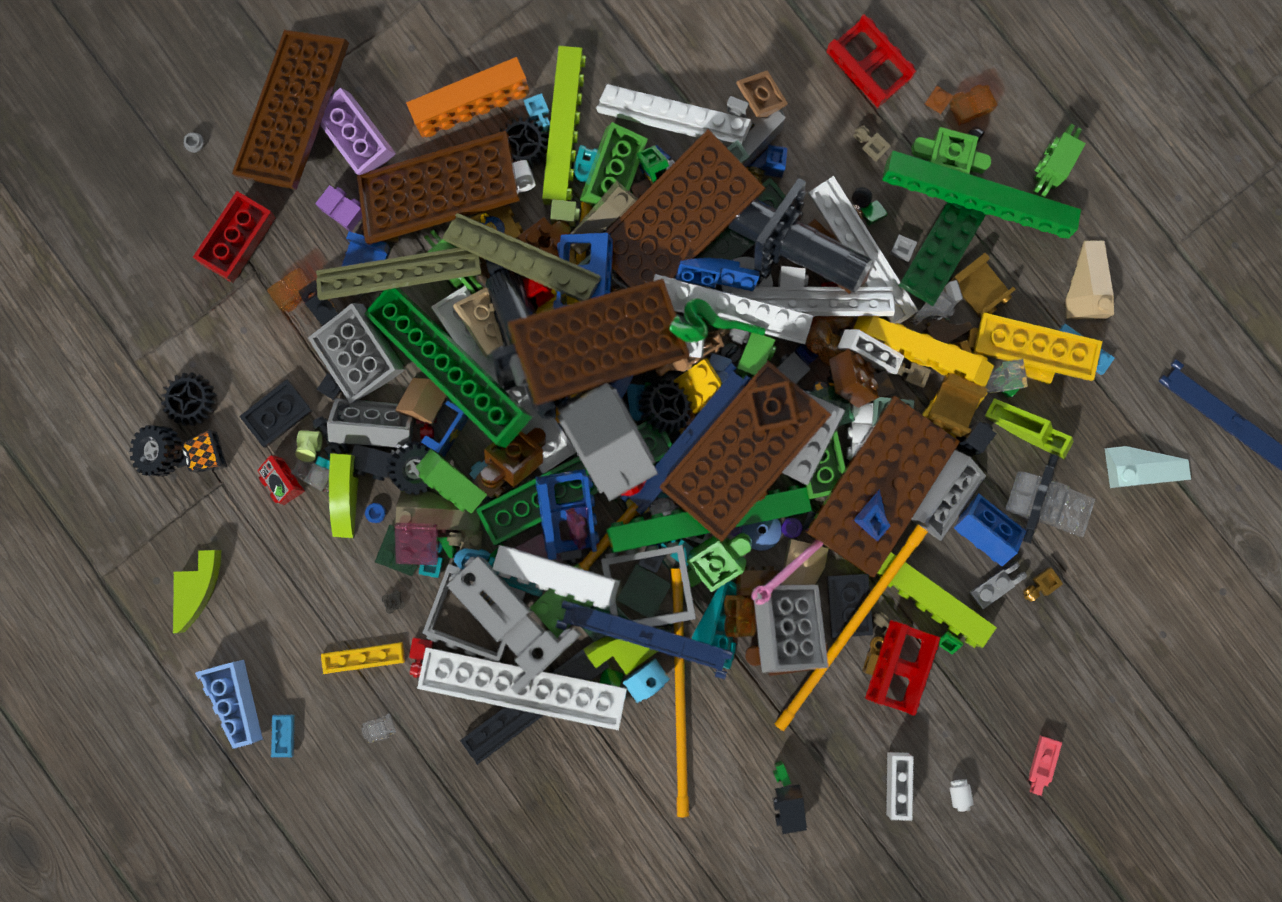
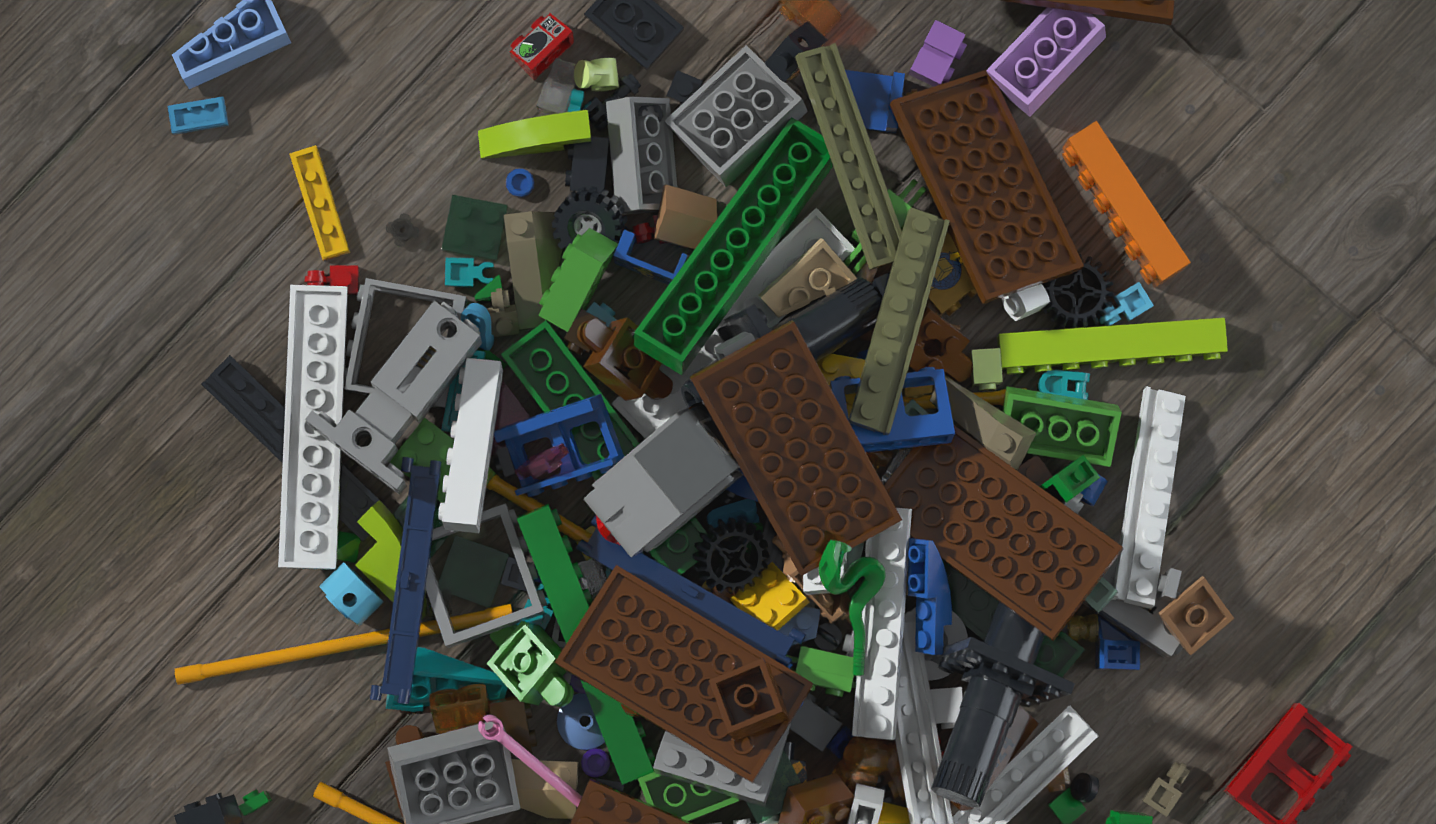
camera: 75 degrees right, 0 degrees up
(378, 728) = (228, 242): clear arch -> none
(416, 543) = (485, 248): clear pink plate -> none
(542, 292) = (860, 344): red window -> none

